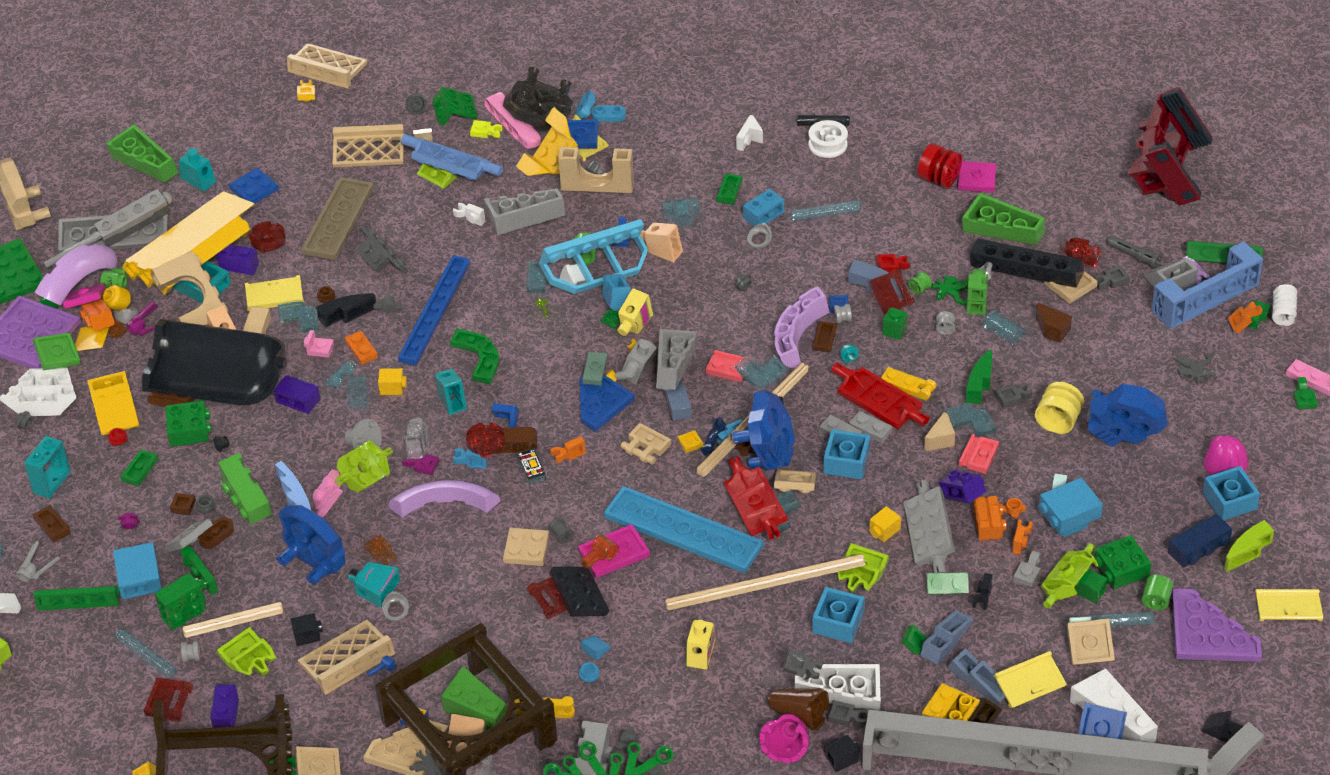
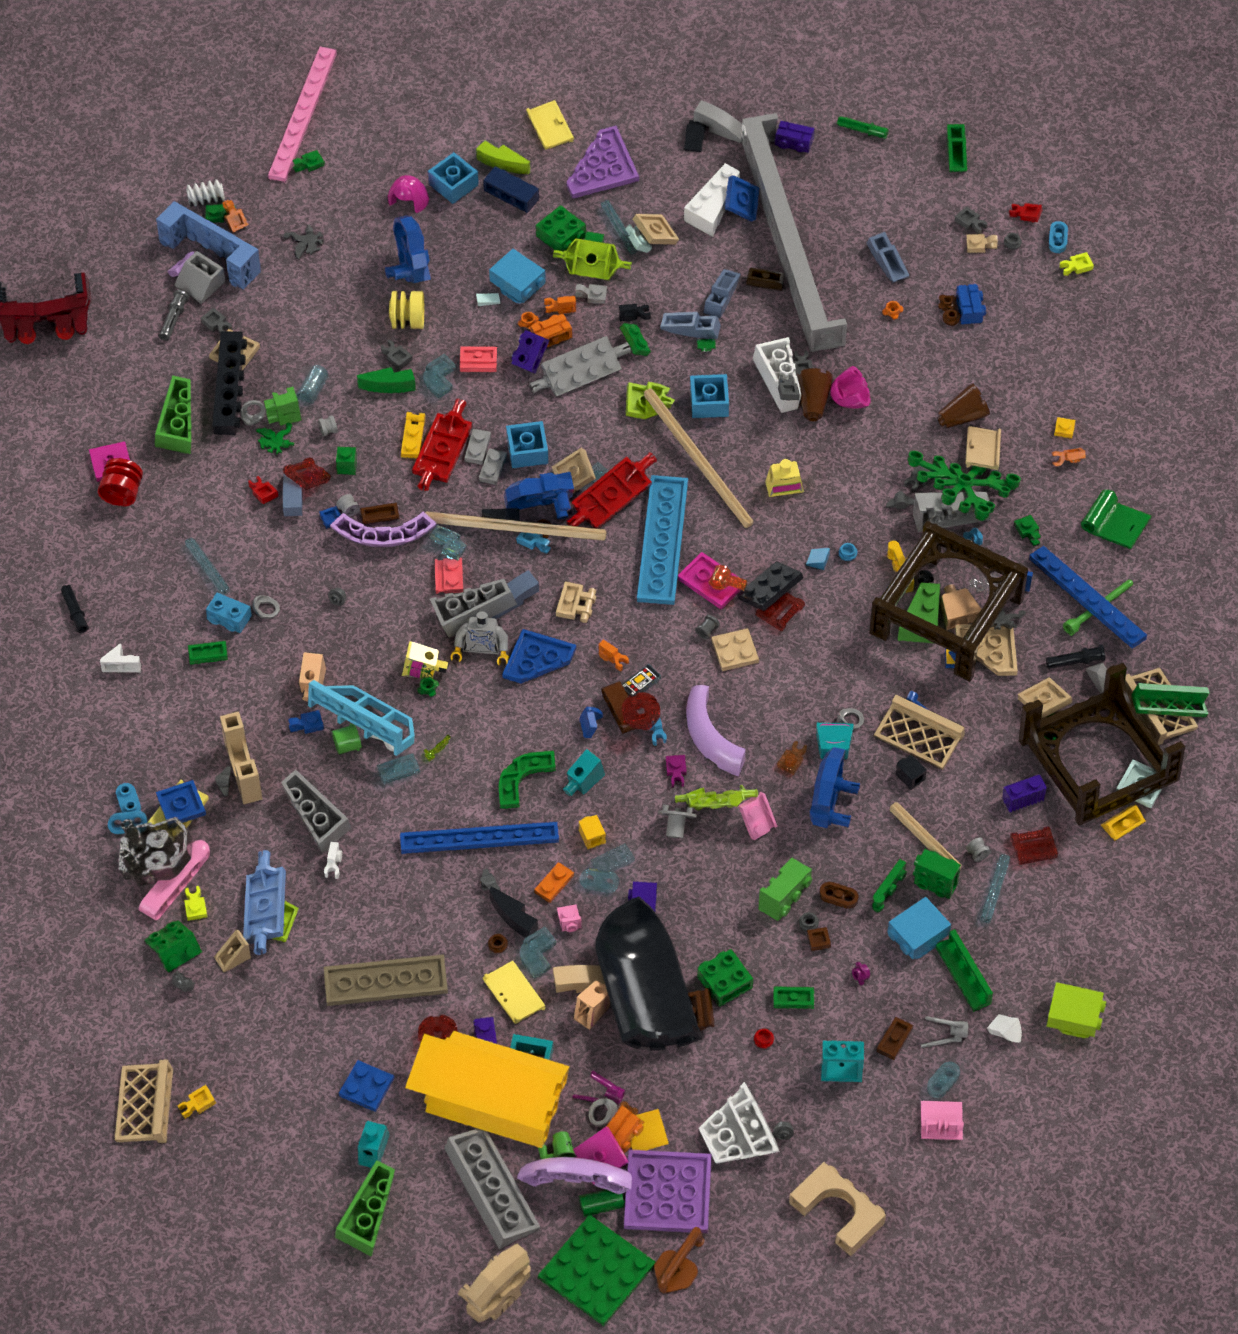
camera: 115 degrees left, 10 degrees up
(56, 351) = (686, 1143): bright green plate -> none
(113, 402) = (728, 1057): yellow slope -> none
(117, 297) = (589, 1124): yellow head -> none
(124, 222) = (490, 1163): light grey piece -> none
(188, 268) = (570, 1027): tan arch -> none
(189, 535) = (858, 907): light grey plate -> none
(220, 442) = (728, 943): black piece -> none
(247, 653) = (958, 805): lime plate -> none
(291, 487) = (768, 845): light blue slope -> none
(368, 135) = (249, 1002): tan fence -> none
(376, 253) = (422, 921): dark grey bracket -> none
(416, 438) = (656, 775): clear brick -> none
(546, 157) = (218, 818): yellow piece -> none
(595, 368) = (507, 667): sand green plate -> none
(615, 291) = (401, 684): dark azure piece -> none
(681, 211) = (258, 678): clear light blue brick -> none
(690, 441) = (555, 572): yellow tile -> none
(719, 426) = (541, 556): dark blue arm -> none
(828, 139) = (104, 602): white wheel -> none
(842, 753) = (843, 355): black brick -> none
(849, 353) = (396, 486): teal plate -> none
(885, 524) = (591, 398): yellow brick -> none
(919, 283) = (282, 459): bright green wheel -> none
(940, 435) = (467, 390): tan slope -> none
(950, 704) = (770, 298): yellow slope -> none
(1035, 675) = (710, 259): light yellow door -> none
(1053, 322) = (296, 348): reddish brown slope -> none
(1081, 249) = (192, 356): clear red plate -> none
(1157, 592) = (582, 201): bright green piece -> none
(1212, 251) = (151, 248): green fence -> none

